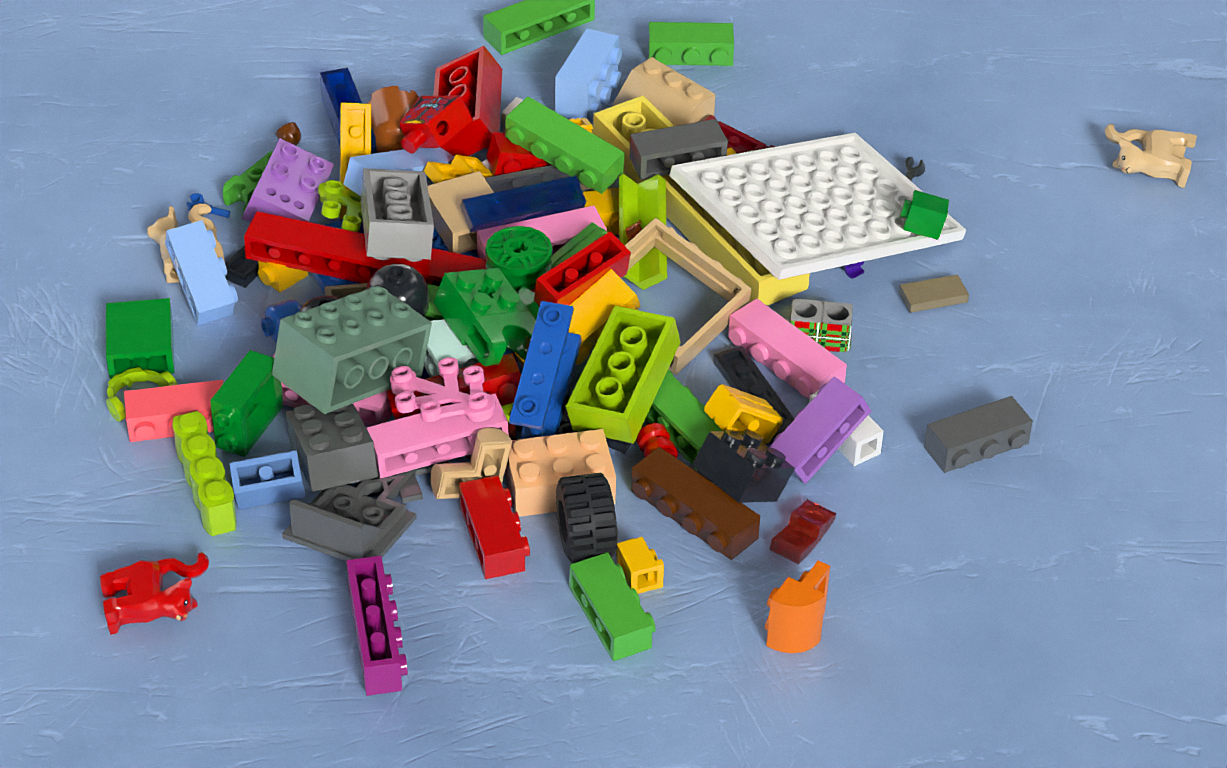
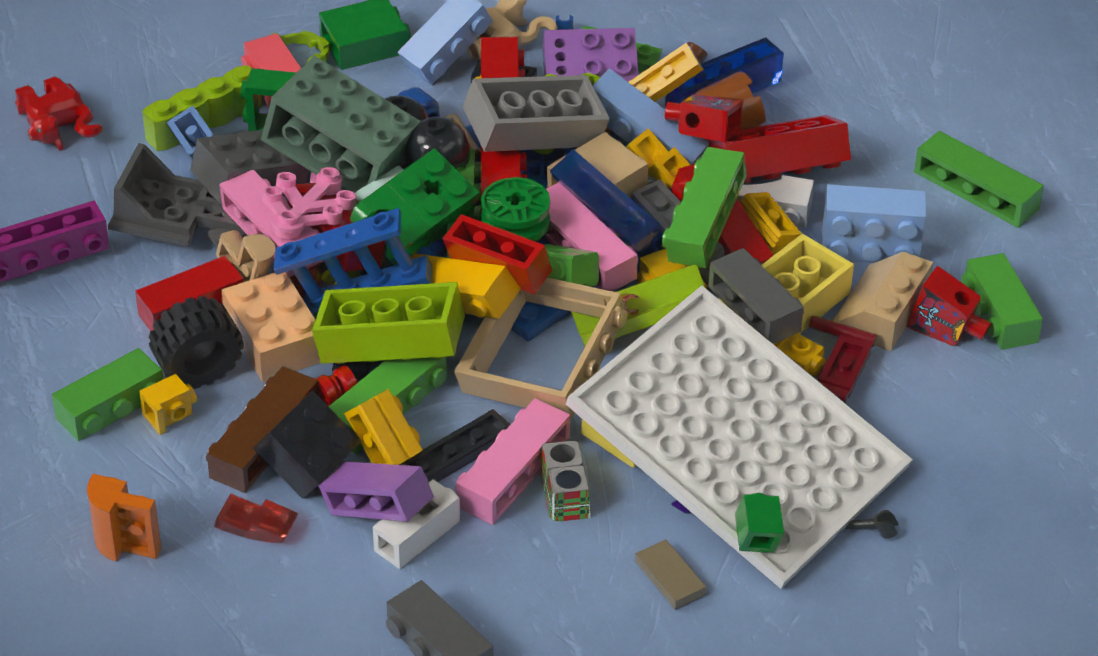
camera: 75 degrees right, 0 degrees up
(702, 64) = (947, 310): none -> red torso

